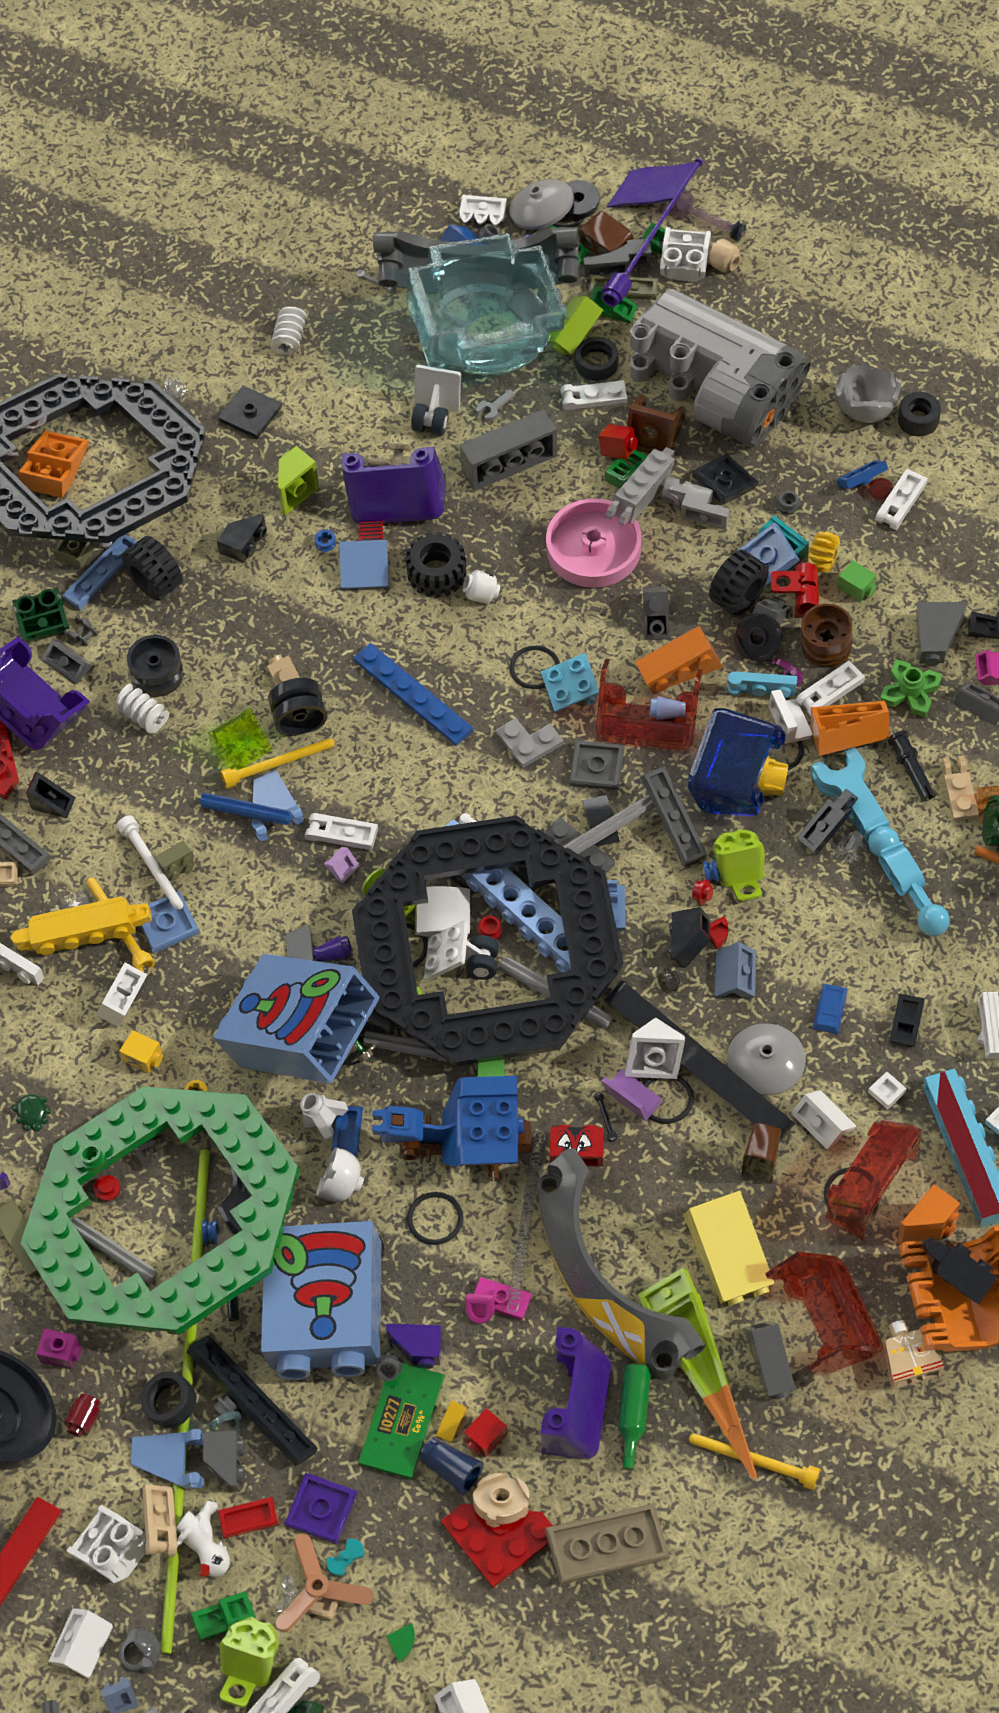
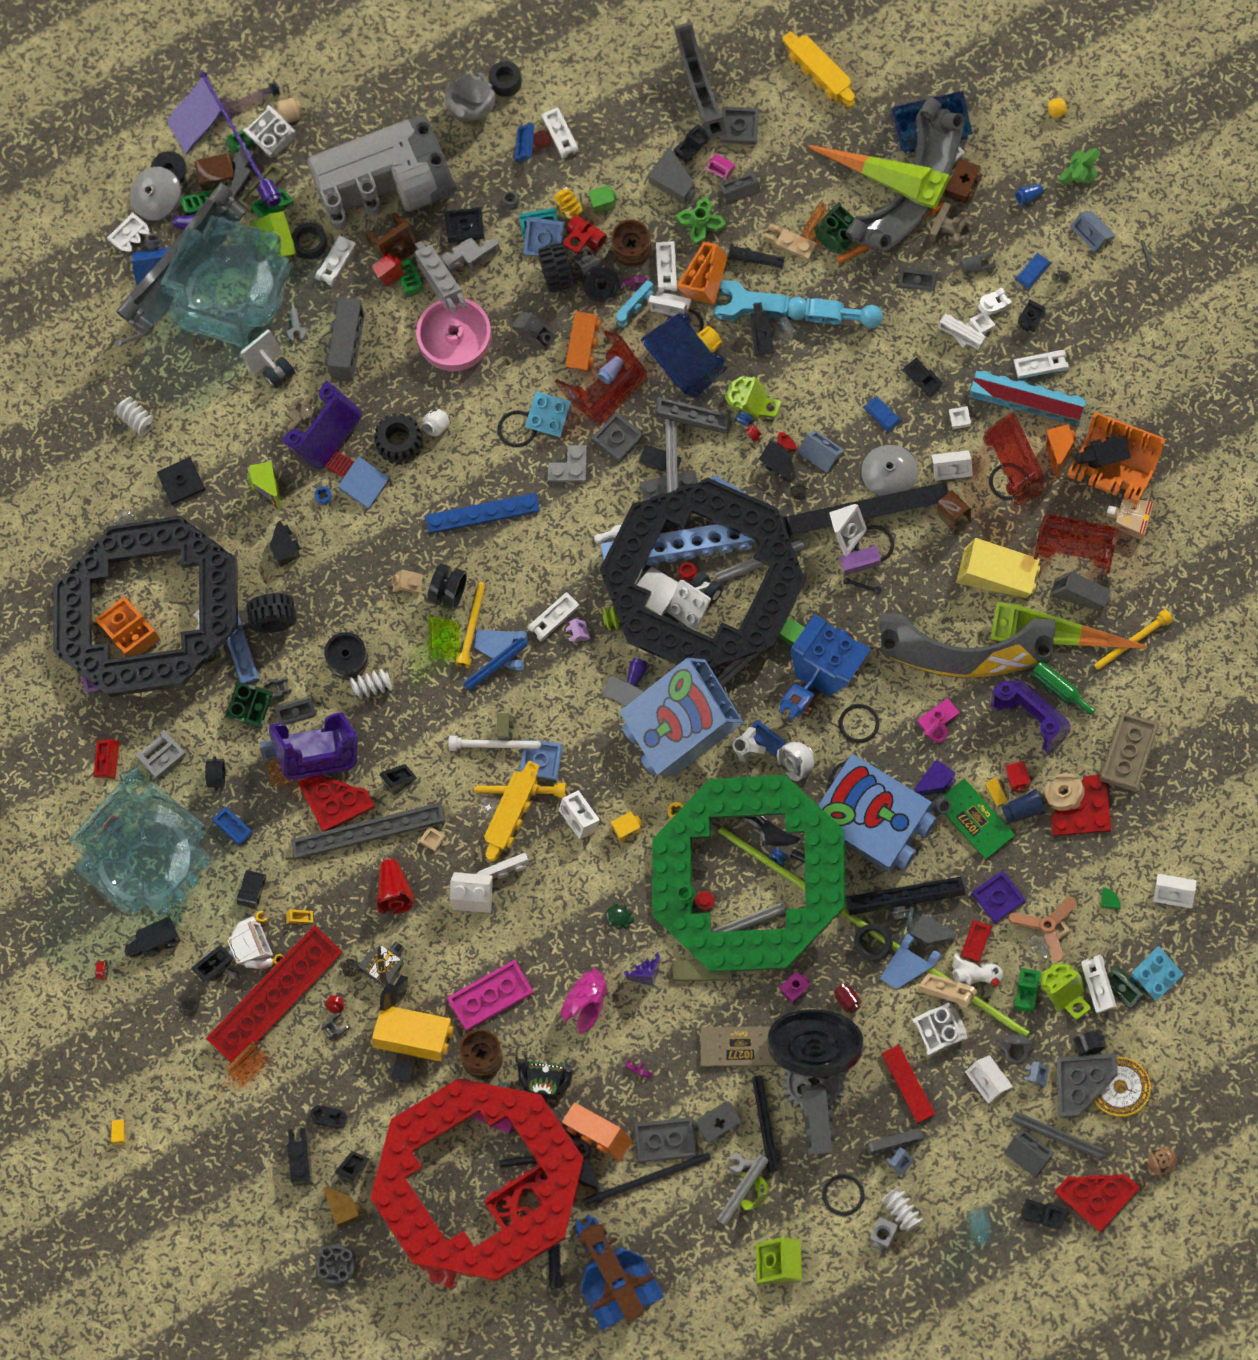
camera: 50 degrees left, 10 degrees up
(337, 1565) = (1039, 907): teal piece -> none
(527, 1226) = (873, 648): light grey piece -> none
(586, 1140) = (869, 615): red brick -> none

